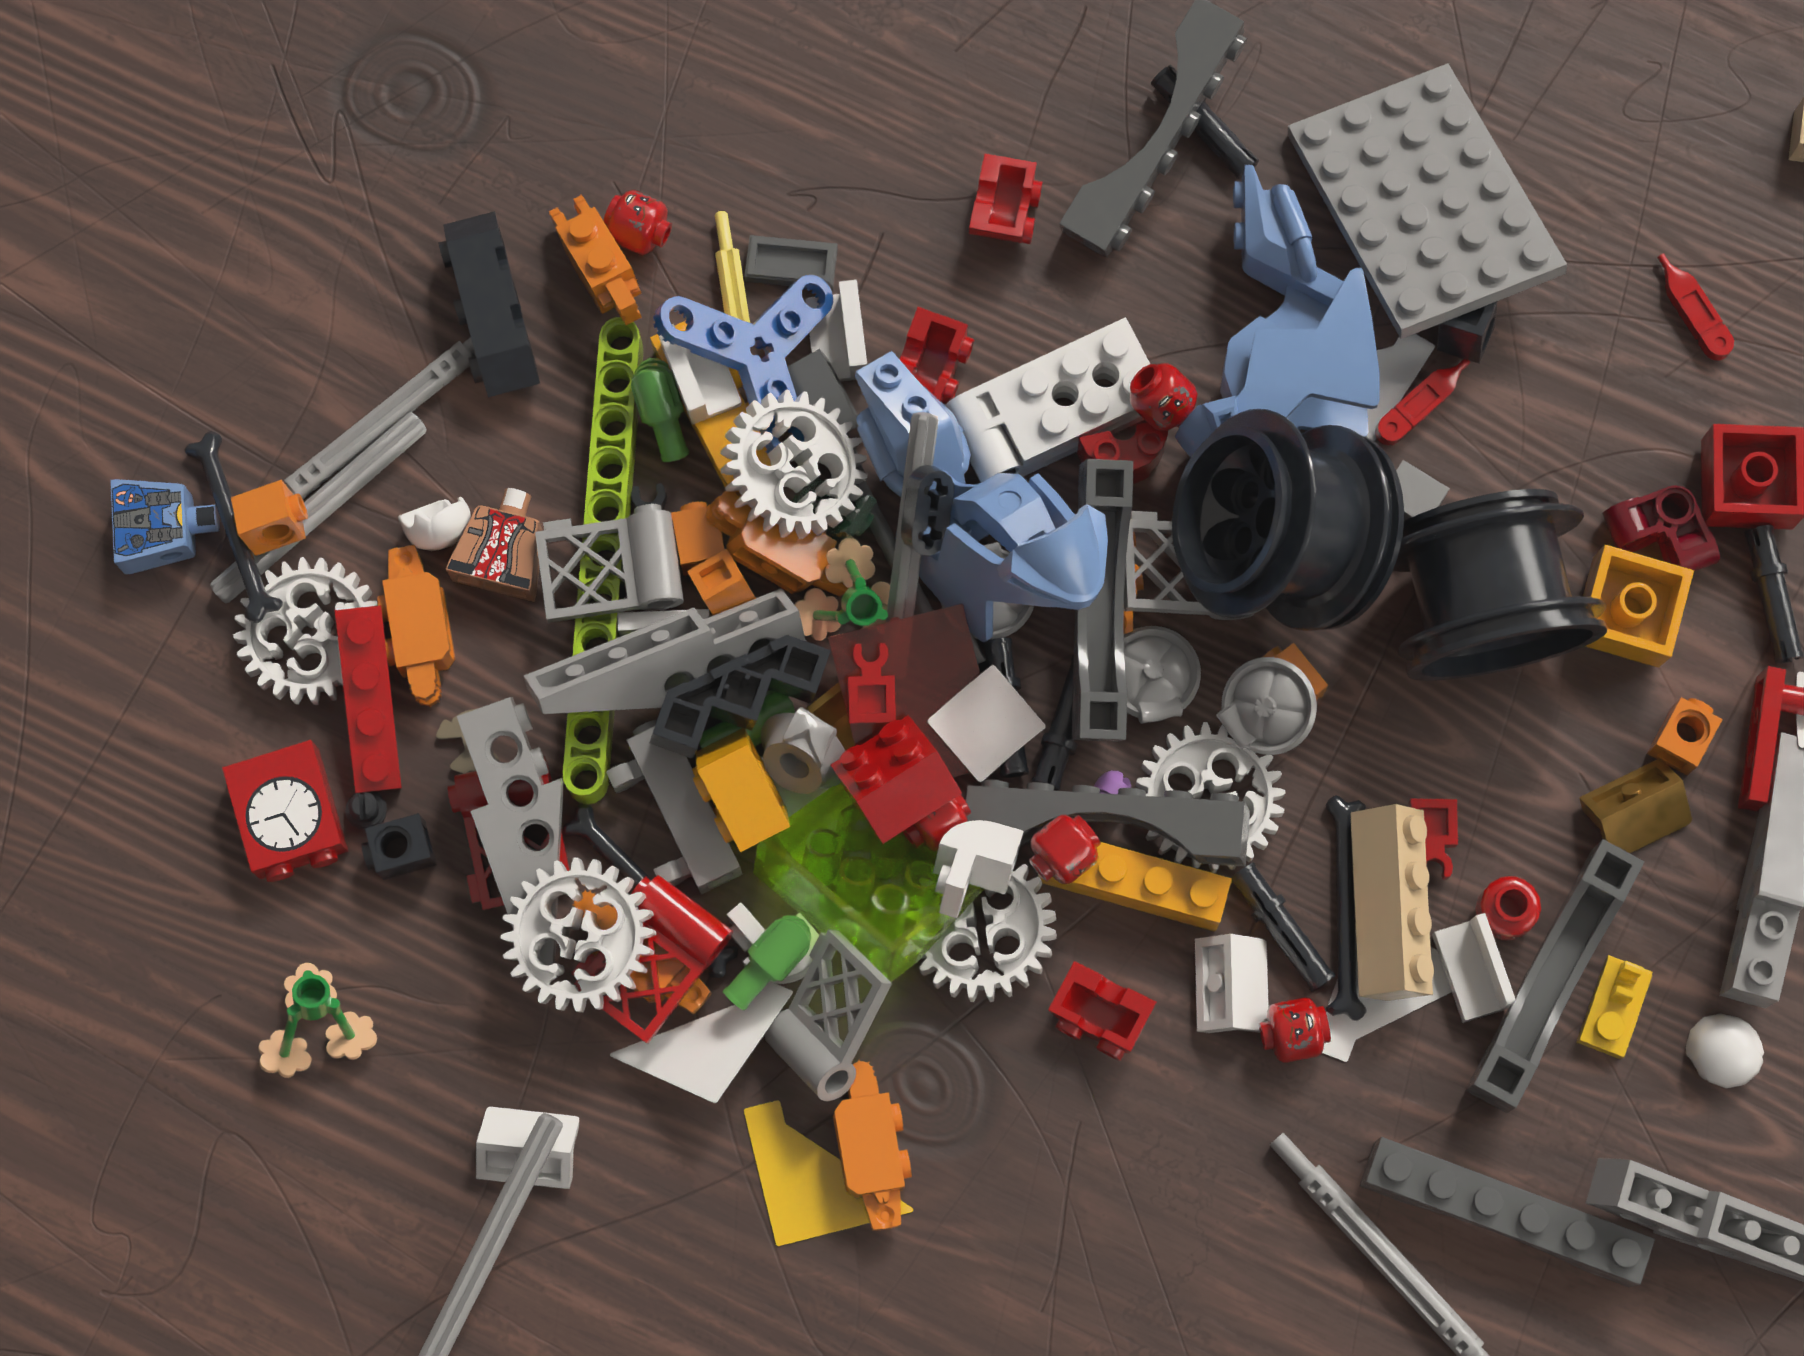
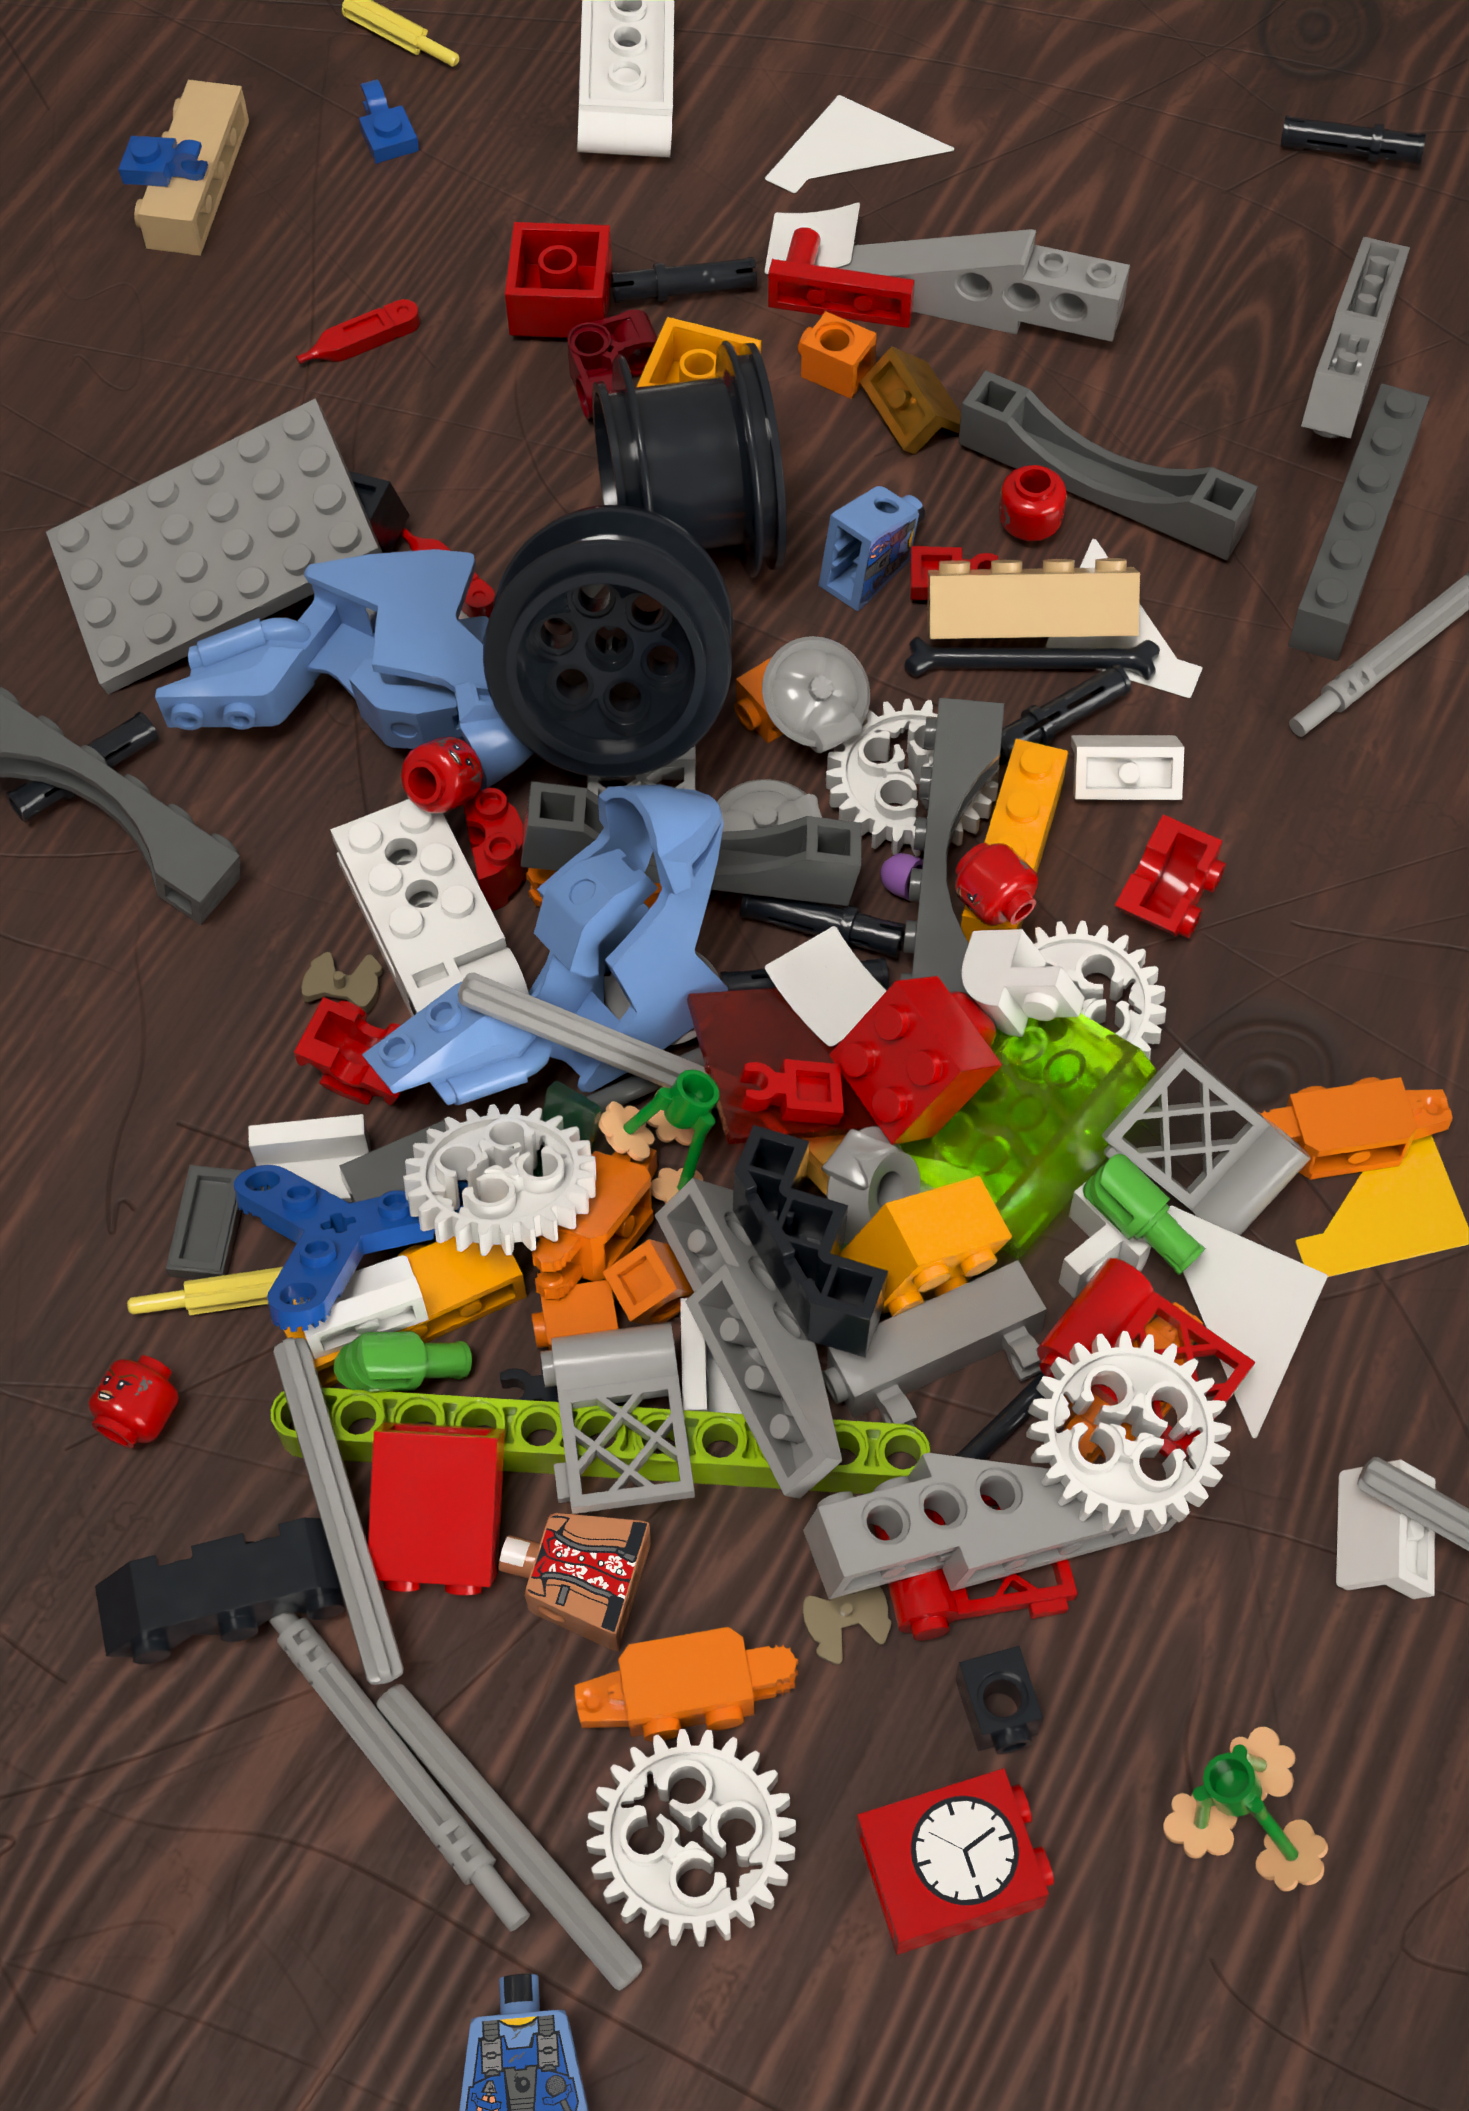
camera: 90 degrees left, 15 degrees down
(259, 600) = (415, 2002): black piece -> none
(269, 517) = (528, 1883): orange brick -> none
(366, 809) = (943, 1756): black piece -> none
(368, 699) = (793, 1742): red plate -> none
(436, 524) = (546, 1658): white hair -> none
(534, 369) = (338, 1512): none -> light grey axle
(546, 438) = (436, 1506): none -> red brick
(598, 260) = (184, 1444): orange hinge -> none
(927, 510) = (580, 1003): black beam -> none
(999, 357) = (359, 988): none -> dark tan piece
(1004, 199) = (158, 973): red cylinder -> none
(1295, 1030) = (1178, 697): red head -> none
(1444, 753) = (868, 544): none -> medium blue torso
(1474, 968) = (1098, 529): white panel -> none
(1615, 1007) = (1129, 430): yellow plate -> none
(1725, 1050) = (1167, 341): white hair -> none

